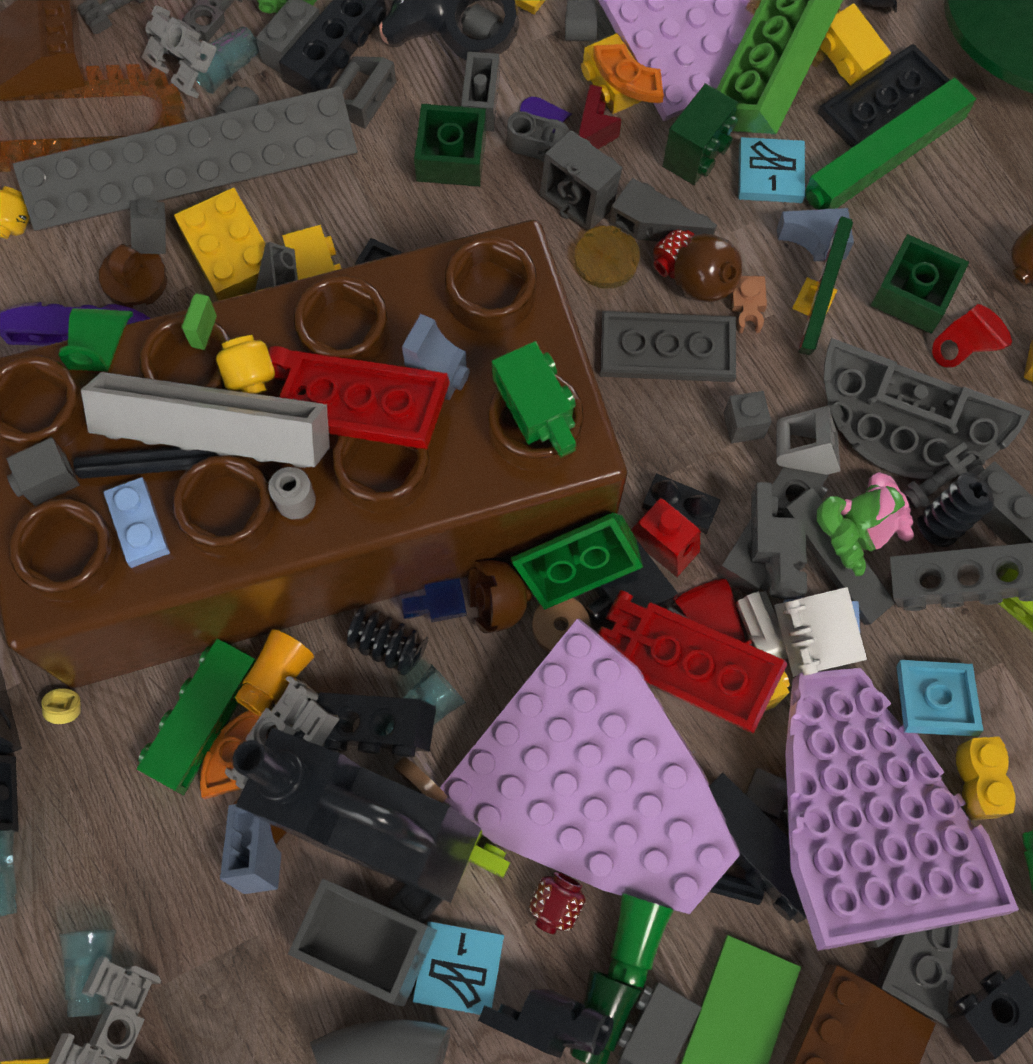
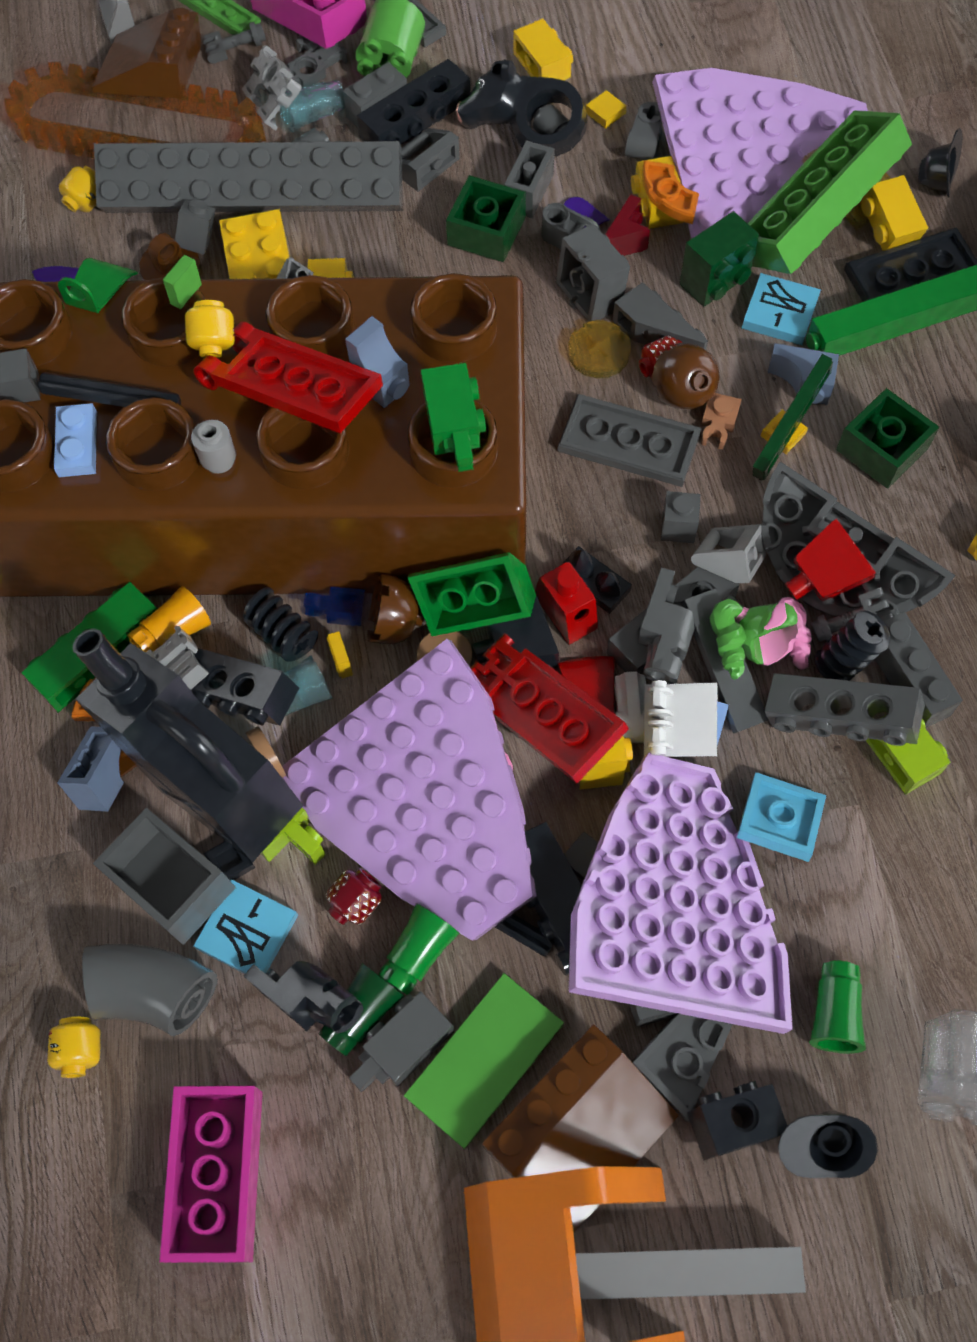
camera: 20 degrees right, 5 degrees down
(207, 419) = (161, 365): light grey brick -> none
(457, 654) = (339, 655): none -> yellow tile
(910, 432) = (829, 565): none -> red torso
(973, 332) = (933, 496): red piece -> none
(986, 788) = (801, 893): yellow brick -> none

